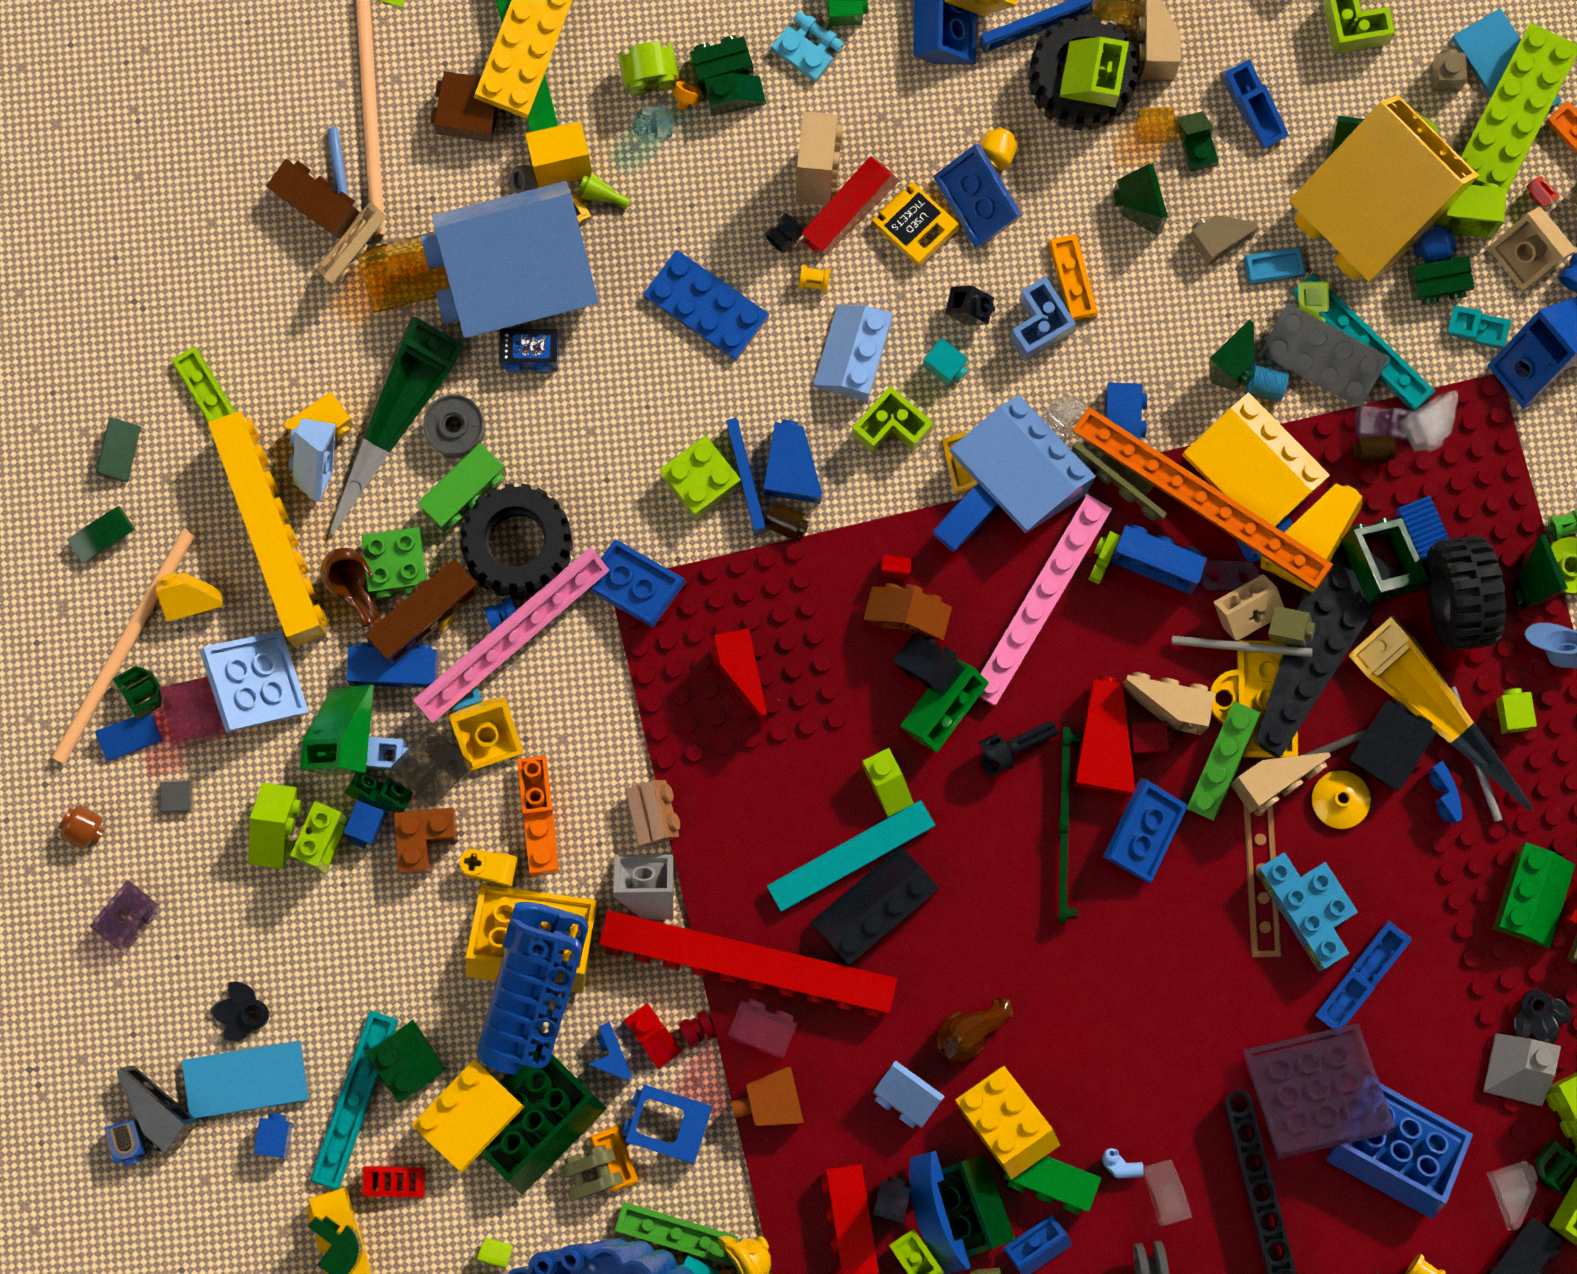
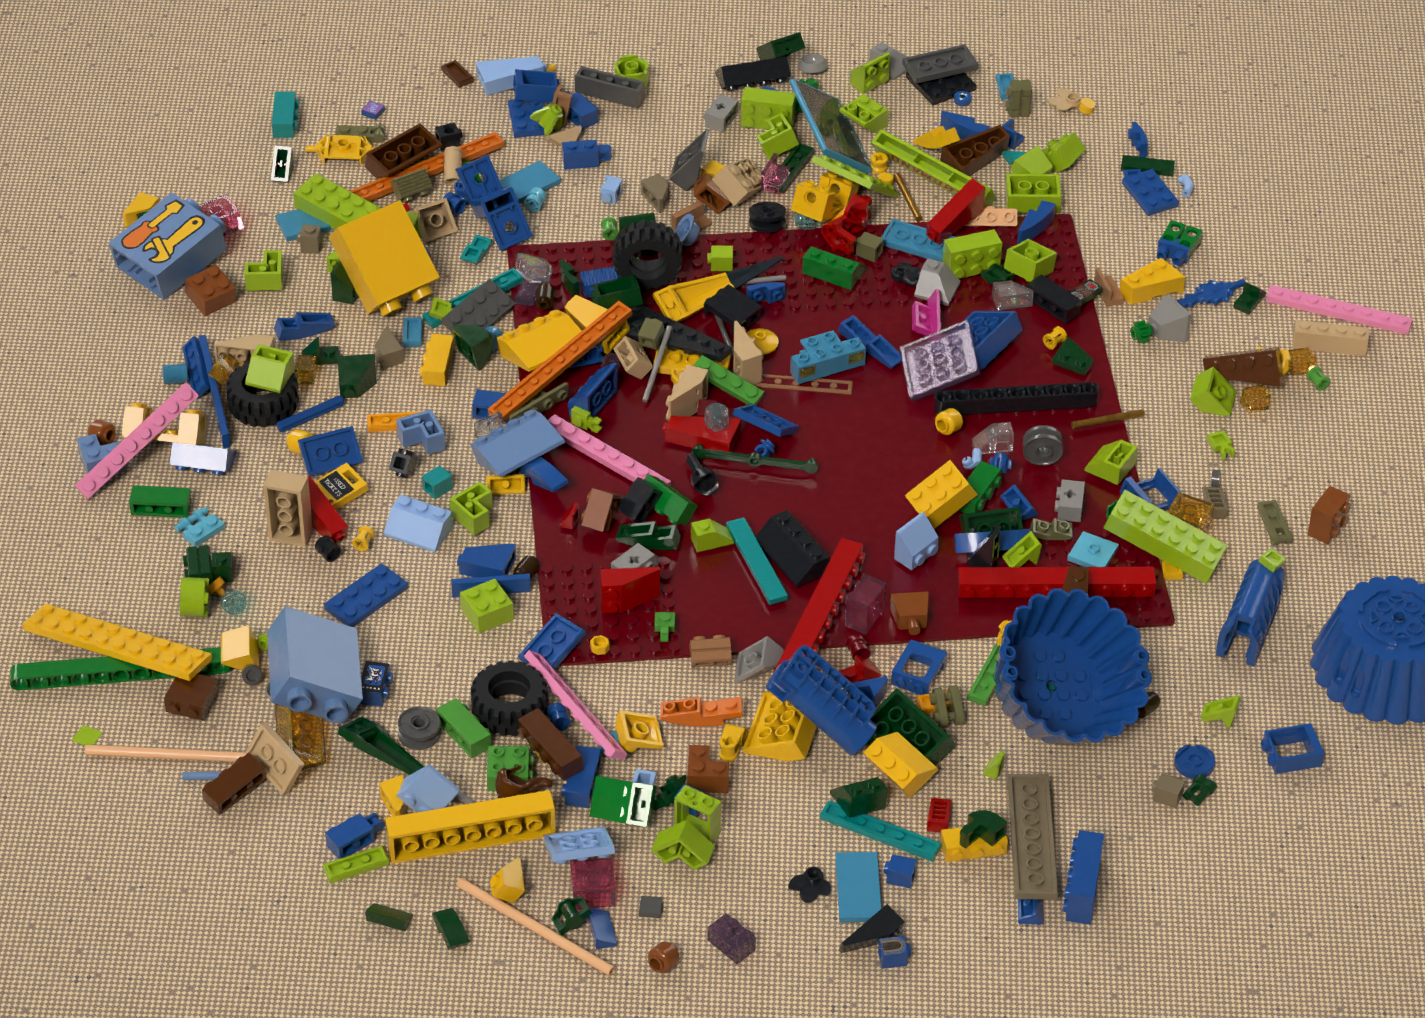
camera: 80 degrees left, 35 degrees down
(248, 374) = (353, 834): none -> blue brick
(432, 767) = (659, 755): clear smoke bracket -> none
(641, 651) = (599, 645): none -> yellow tile
(702, 738) = (664, 624): none -> bright green plate
(821, 676) = (634, 558): none -> light grey brick
(872, 688) = (649, 535): none -> dark green slope
(963, 1035) = (880, 513): reddish brown piece -> none
(1066, 151) = (310, 413): none -> blue axle
(1093, 841) = (767, 446): none -> blue plate
(1108, 763) = (716, 416): none -> clear light blue head
(1111, 1209) = (1001, 461): none -> blue gear
(1194, 1118) = (948, 421): none -> yellow head
(1209, 313) = (437, 359): none -> yellow brick
(1428, 476) = (568, 279): none -> dark green slope
(1432, 1060) = (927, 318): none -> dark pink bracket
(1441, 278) = (443, 257): dark green brick -> none

